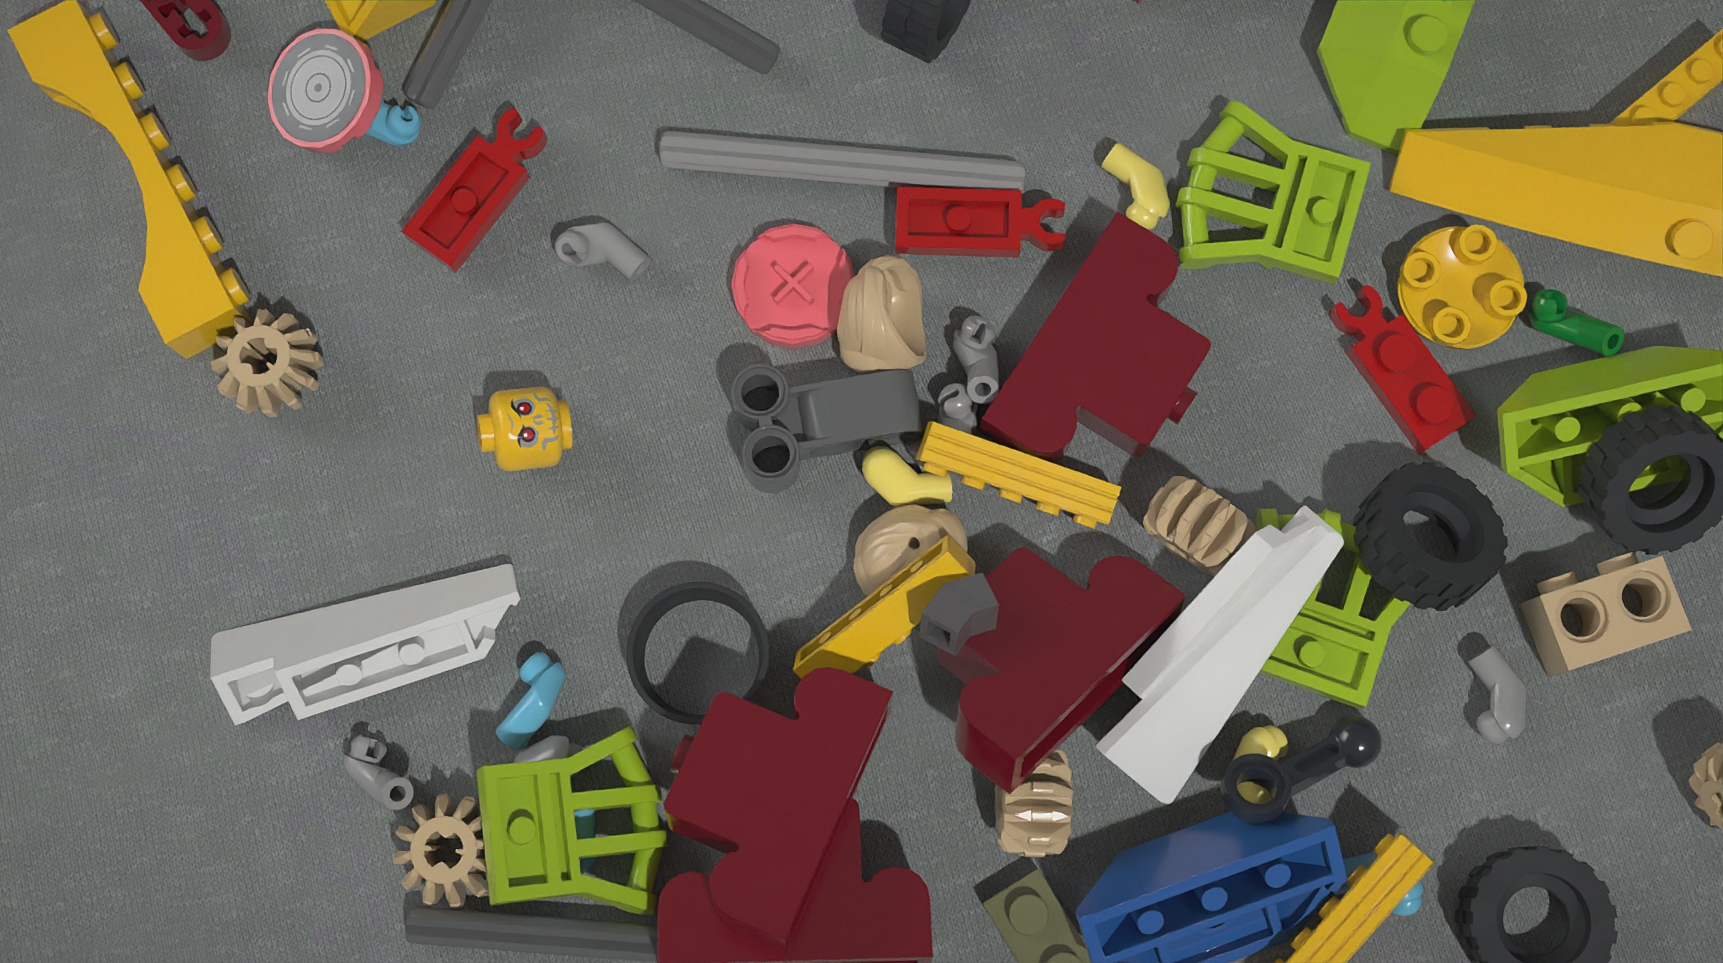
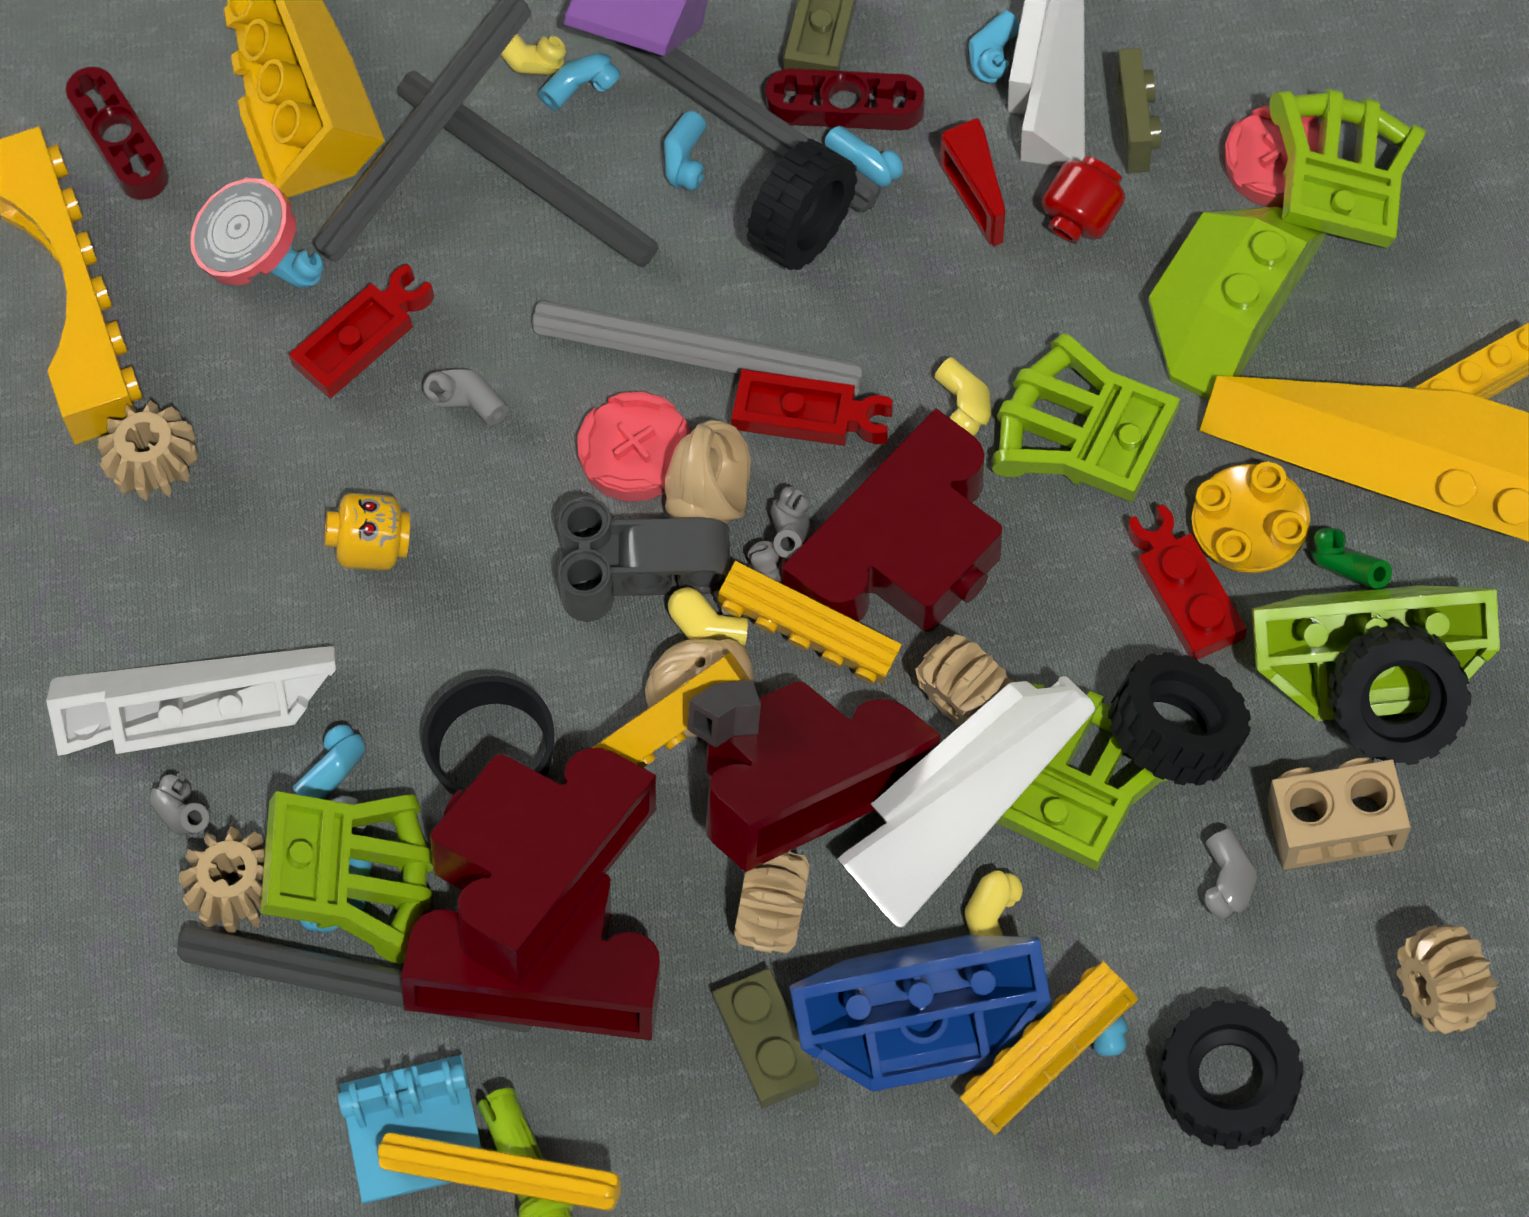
camera: 10 degrees right, 15 degrees down
(1351, 743) = (1081, 897): black piece -> none

